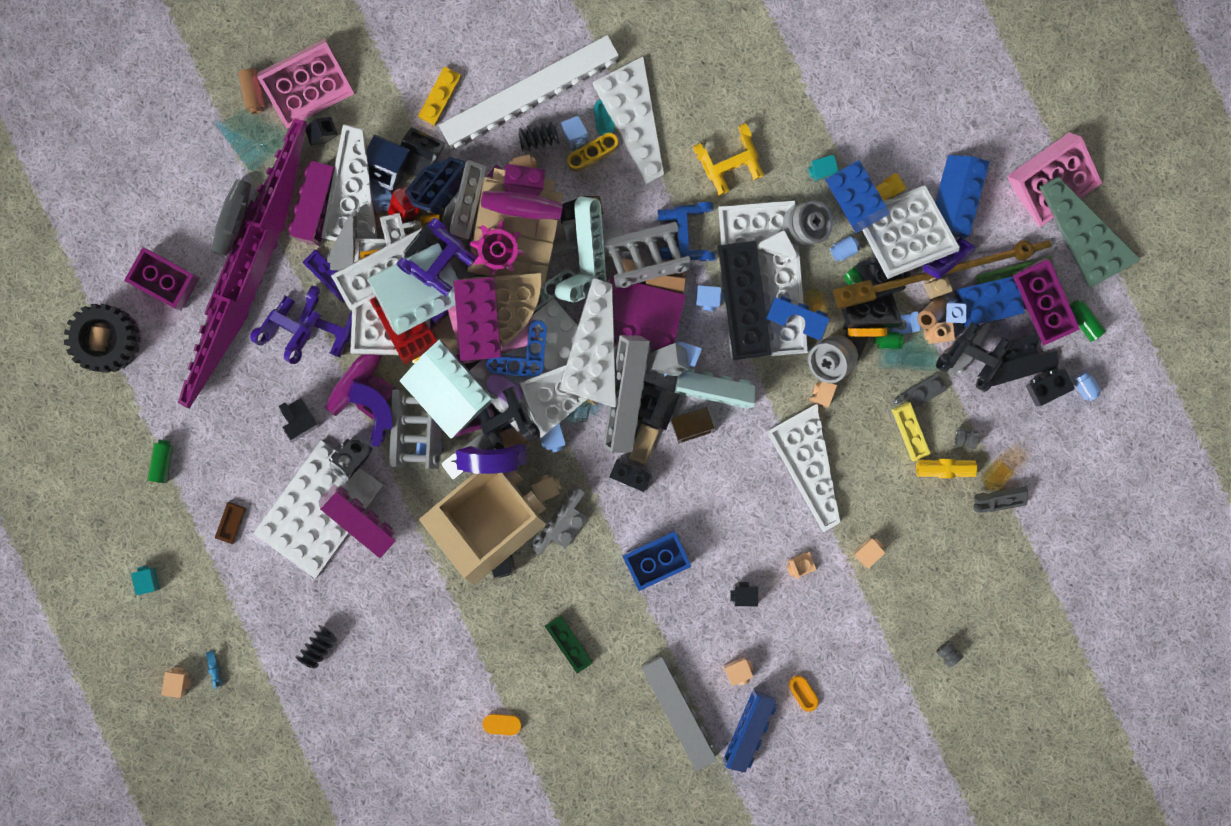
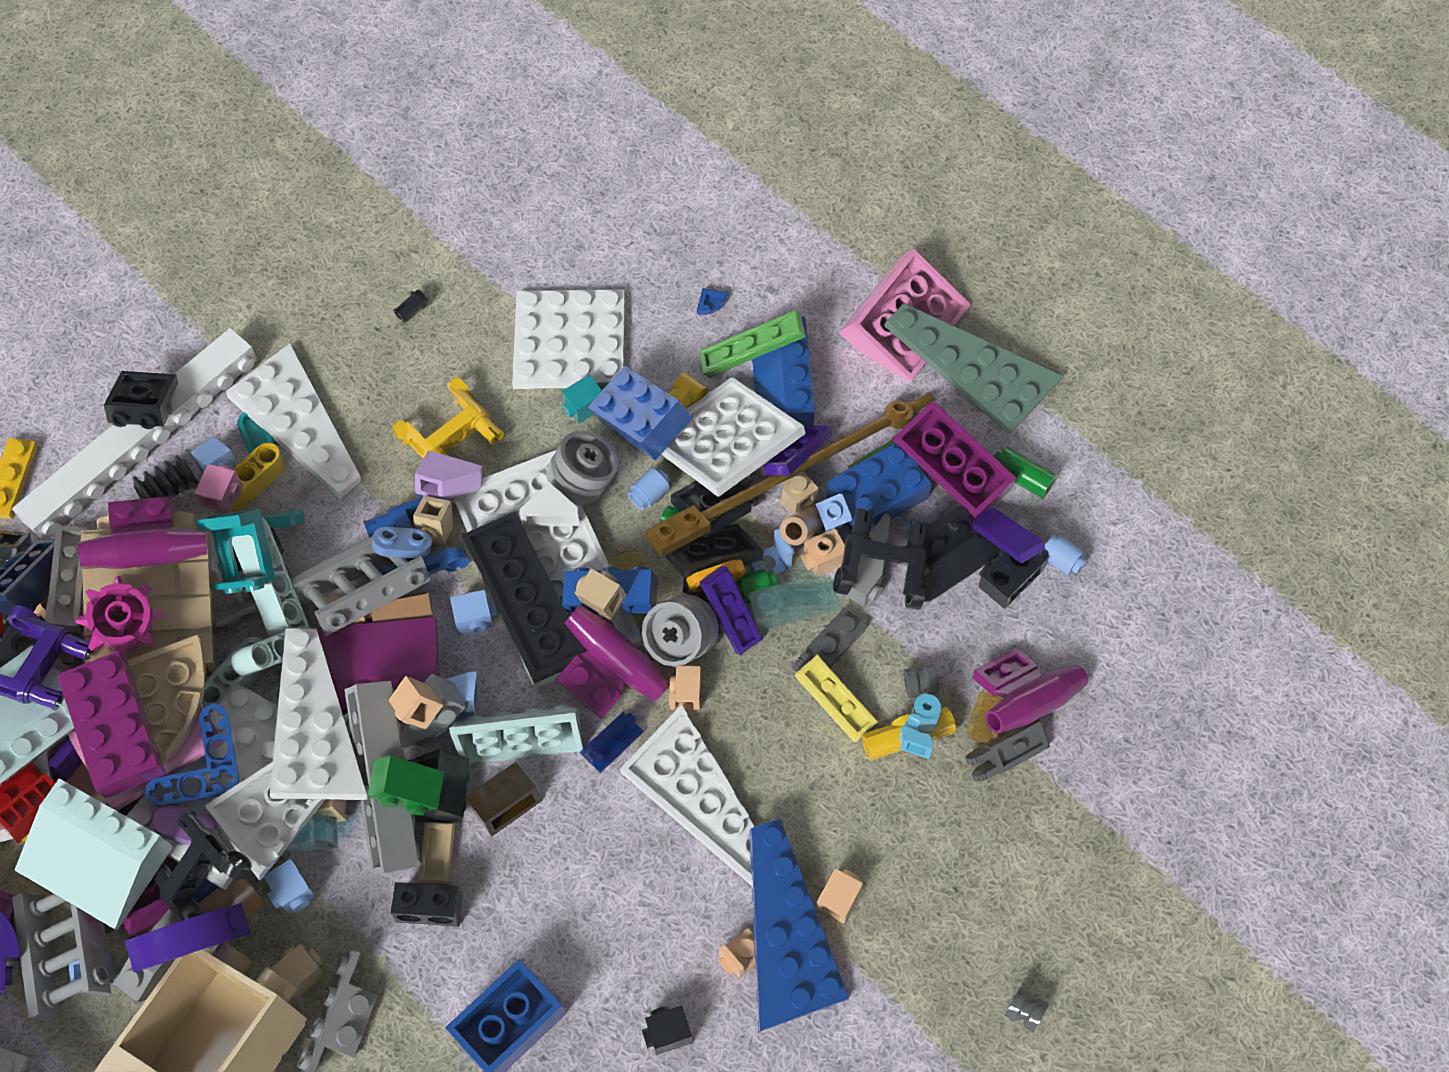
camera: 10 degrees left, 25 degrees down
(538, 75) = (140, 399): none -> black plate
(574, 160) = (218, 488): none -> bright pink brick
(576, 201) = (234, 524): none -> teal window
(602, 188) = (284, 518): none -> teal tile
(639, 408) = (405, 785): none -> green brick
(660, 361) = (415, 703): none -> light nougat brick
(679, 240) = (401, 542): none -> medium blue plate
(702, 226) = (435, 518): none -> tan brick
(719, 200) = (446, 476): none -> lavender slope
(730, 54) = (410, 305): none -> black pin
(767, 410) = (612, 741): none -> clear blue hinge
(783, 364) = (608, 663): none -> magenta plate
(793, 324) = (600, 592): none -> tan brick
(828, 116) = (568, 337): none -> white plate
(830, 571) = (789, 944): none -> blue wing
(868, 356) = (731, 610): none -> dark purple tile
(931, 120) = (711, 300): none -> blue tile
(947, 168) = (752, 343): none -> bright green tile
(960, 465) = (923, 719): none -> medium azure leg
(1027, 468) = (1024, 691): none -> magenta plate
(1058, 365) = (1008, 535): none -> dark purple tile

